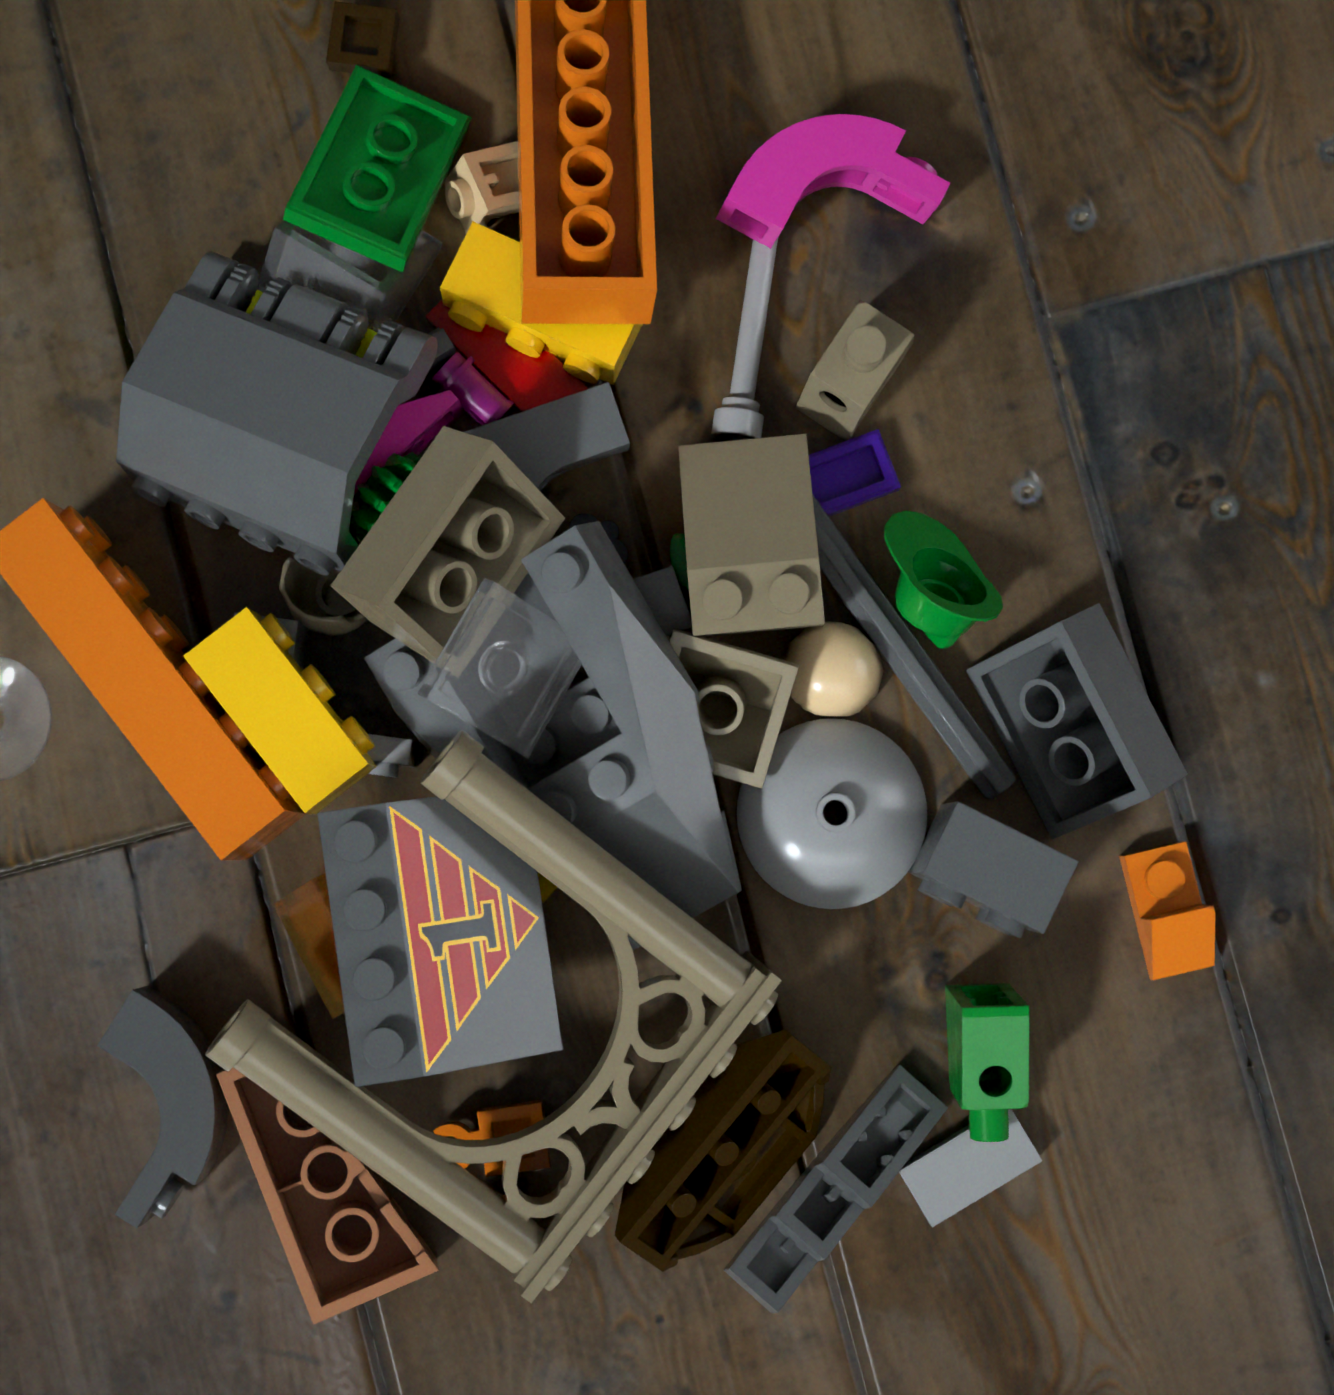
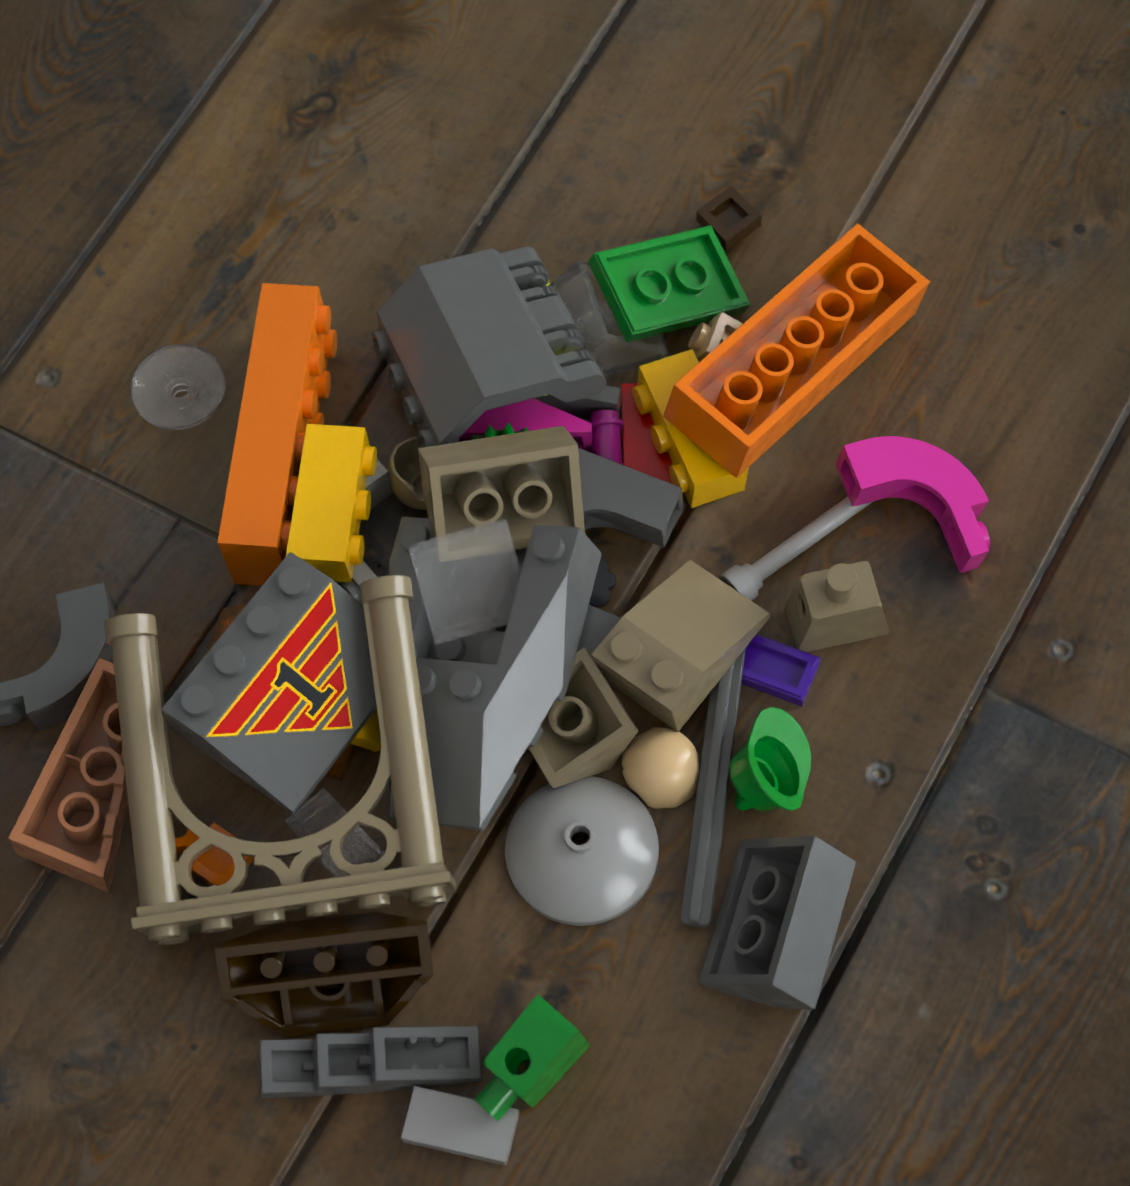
camera: 50 degrees right, 20 degrees down
(590, 1010) = (322, 812): none -> clear tile
(993, 868) = (641, 951): dark grey brick -> none
(1168, 910) = (728, 1089): orange slope -> none

